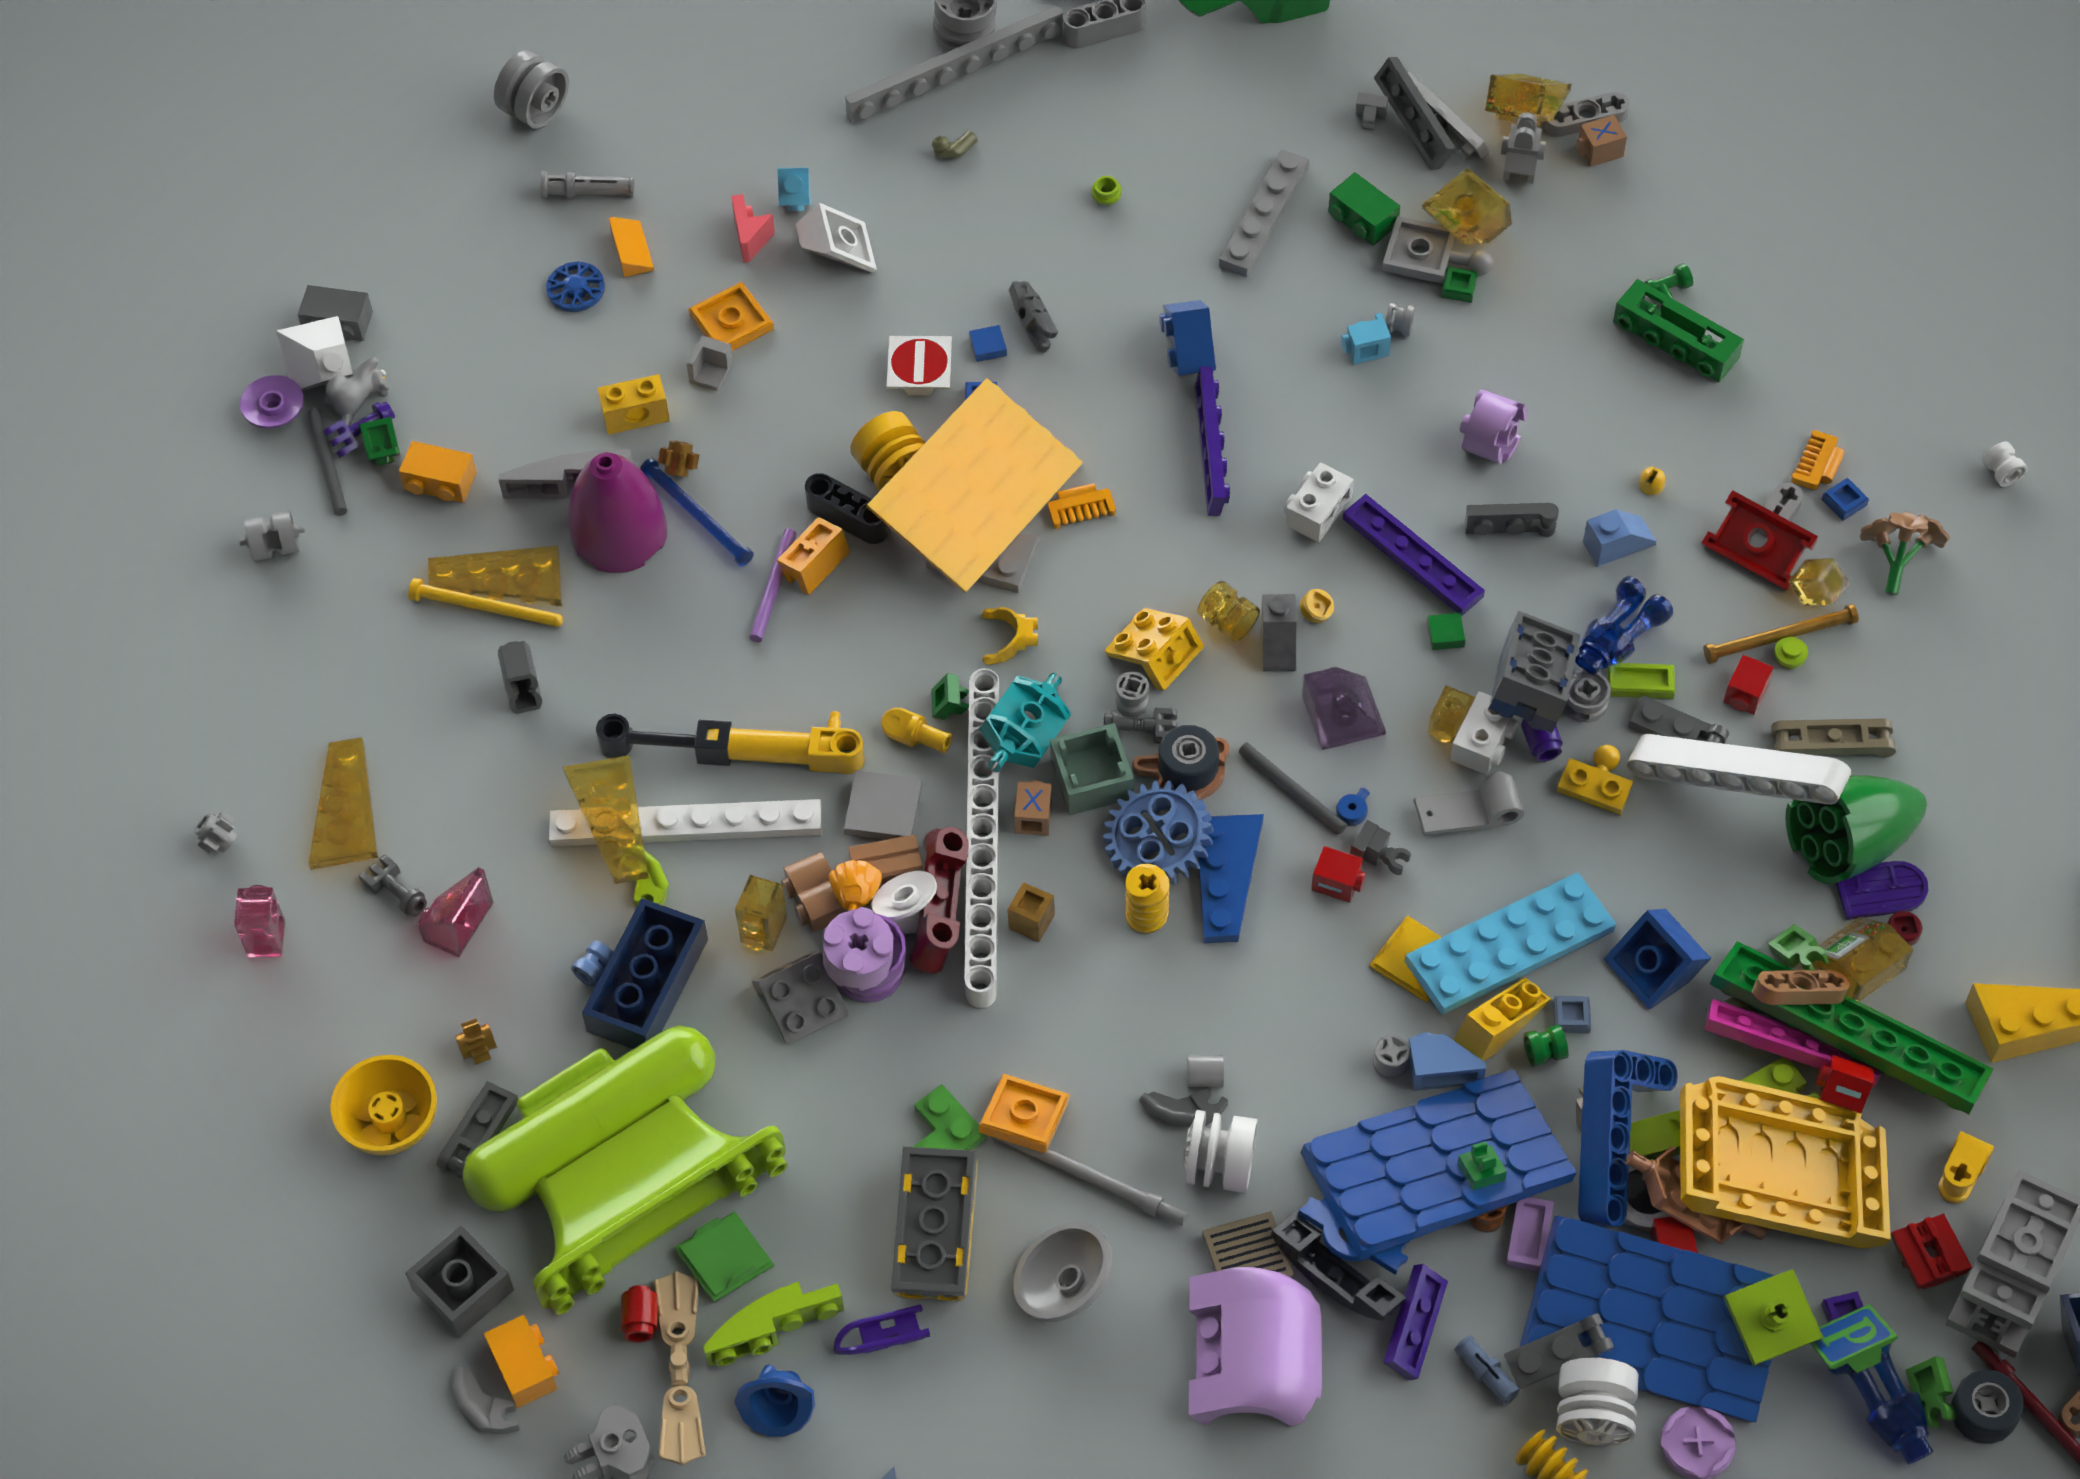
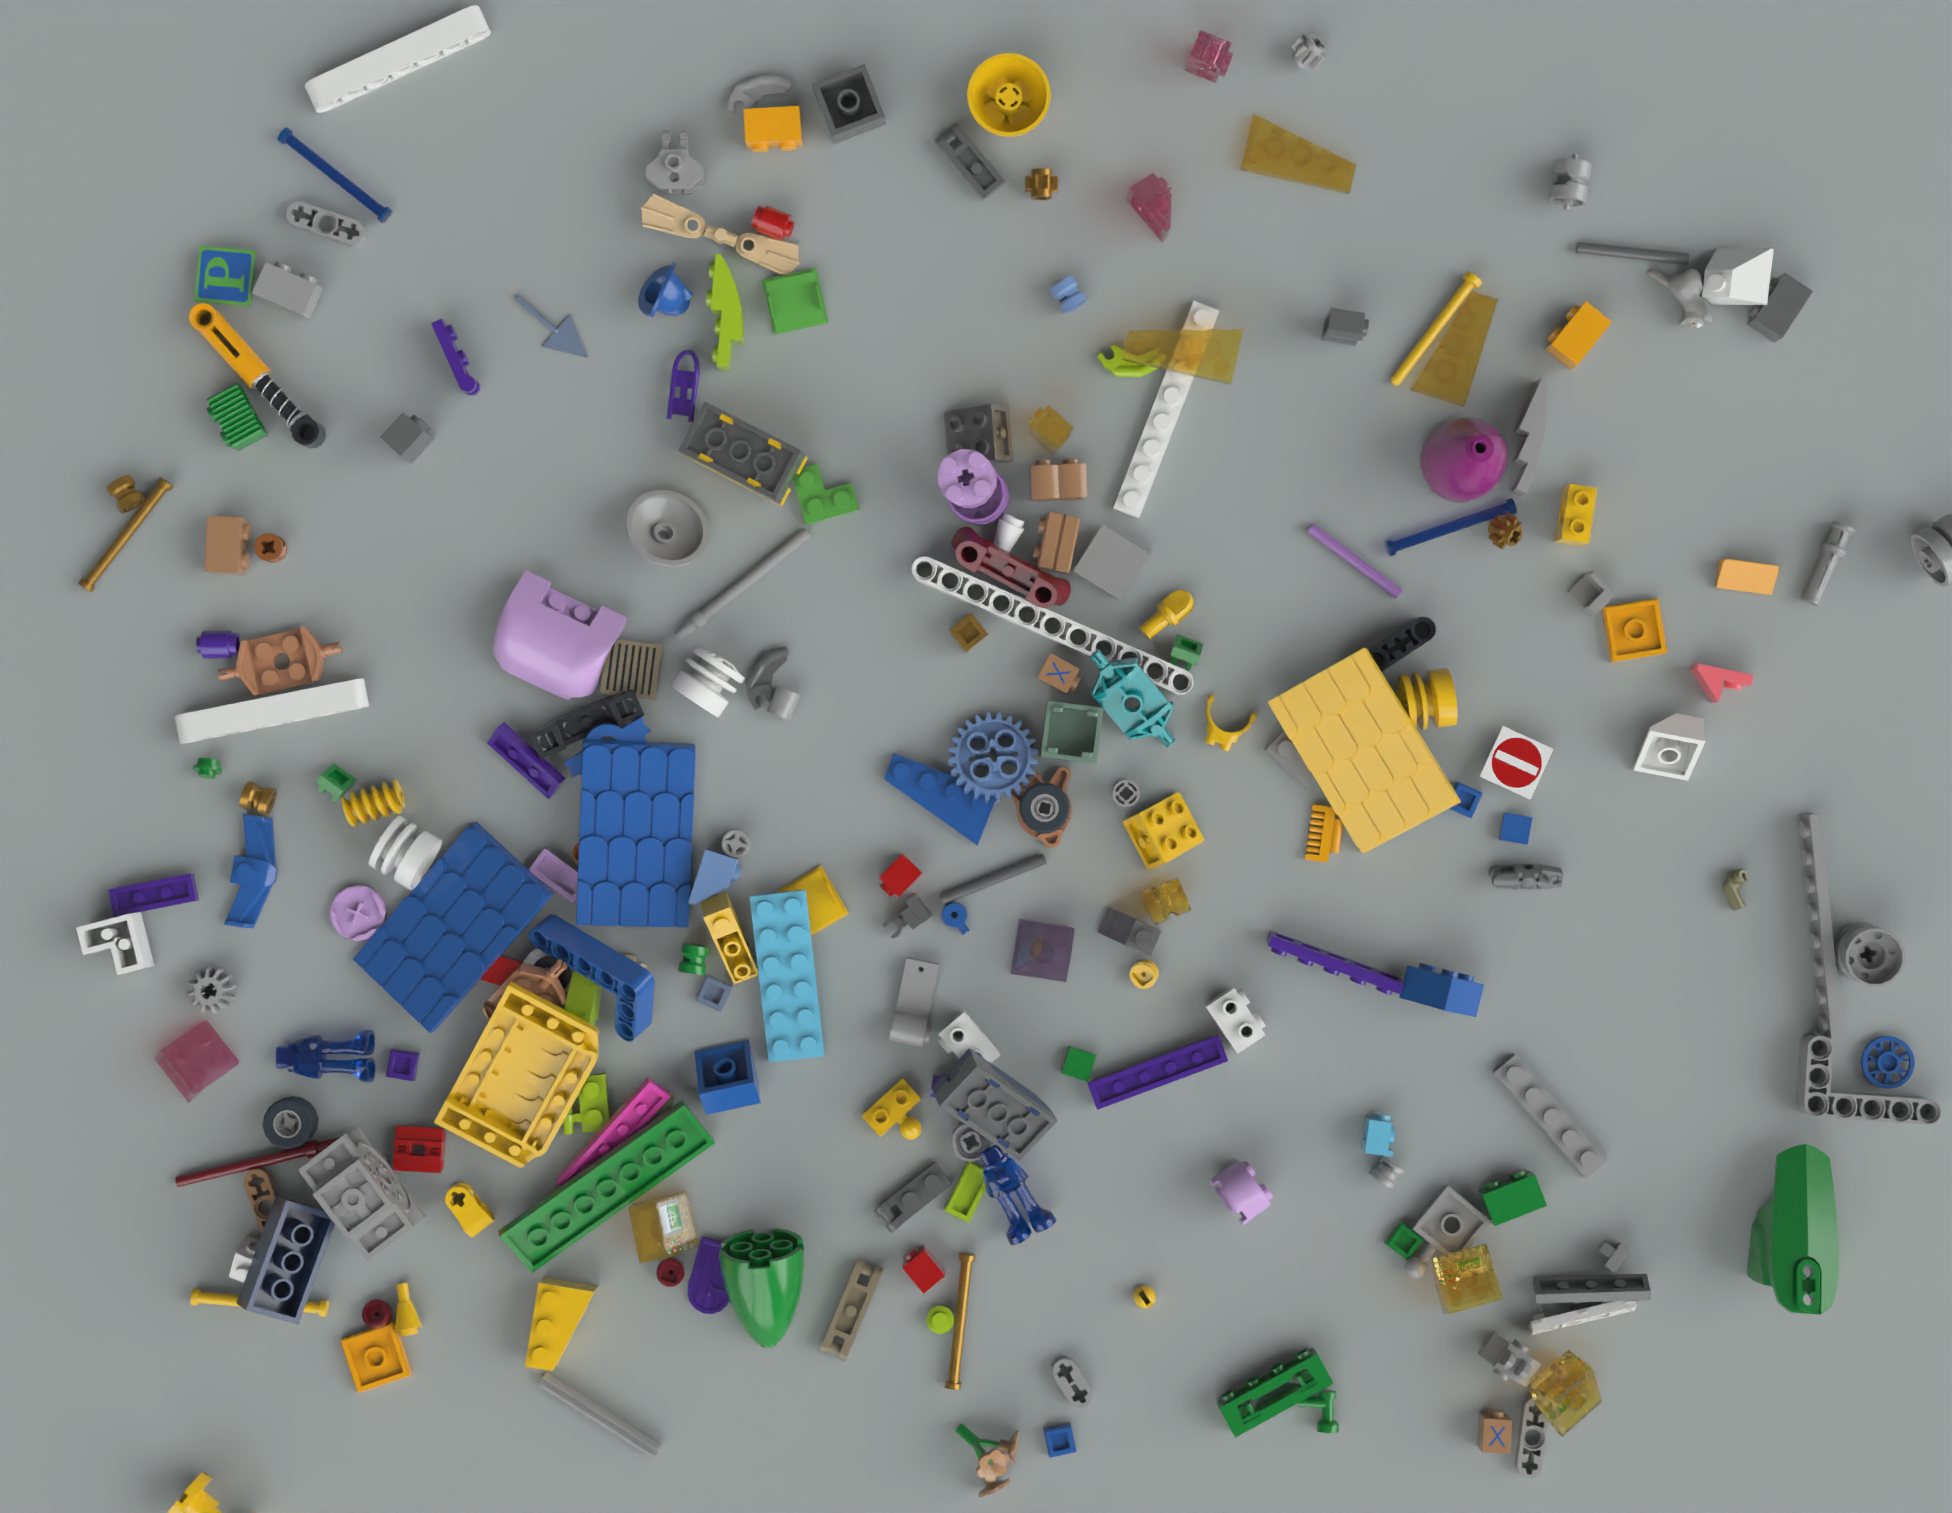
camera: 110 degrees right, 30 degrees up
(271, 392) = (1719, 218): medium lavender dish -> none
(348, 434) = (1648, 275): dark purple hinge -> none
(380, 441) = (1628, 299): green bracket -> none
(411, 901) = (1184, 179): dark grey hinge -> none
(575, 286) = (1725, 516): blue wheel -> none
(617, 1158) = (901, 248): lime piece -> none
(645, 975) = (1038, 325): dark blue brick -> none
(720, 743) = (1211, 481): piece -> none
(794, 188) = (1740, 731): medium azure bracket -> none
(814, 555) = (1364, 601): light orange hinge -> none
(855, 883) = (1040, 506): light orange piece -> none
(904, 895) = (1021, 536): white dish -> none
(1024, 1113) = (809, 558): light orange tile -> none
(1109, 185) = (1637, 994): lime plate -> none
(1147, 898) = (941, 711): yellow piece -> none
(1161, 724) = (1093, 801): dark grey hinge -> none
(1449, 714) = (997, 1027): clear yellow brick -> none
(1482, 1166) = (608, 859): green tile -> none
(1487, 1370) = (453, 797): sand blue pin -> none
(1511, 518) = (1152, 1165): dark grey plate -> none
(1546, 1355) = (457, 846): dark grey plate -> none
(1616, 536) = (1101, 1241): medium blue slope -> none
(1739, 768) = (835, 1212): white beam -> none
(1773, 1317) = (409, 1005): lime tile -> none
(1777, 556) = (1066, 1347): red piece -> none
(1797, 946) = (688, 1183): bright green plate -> none
(1819, 582) = (985, 1372): clear yellow brick -> none
(1819, 986) = (643, 1153): medium nougat beam -> none
(1821, 461) = (1099, 1444): light orange piece -> none
(1845, 1083) = (560, 1155): red brick -> none
(1854, 1339) = (370, 1051): piece -> none
(1933, 1385) = (320, 1093): bright green plate -> none

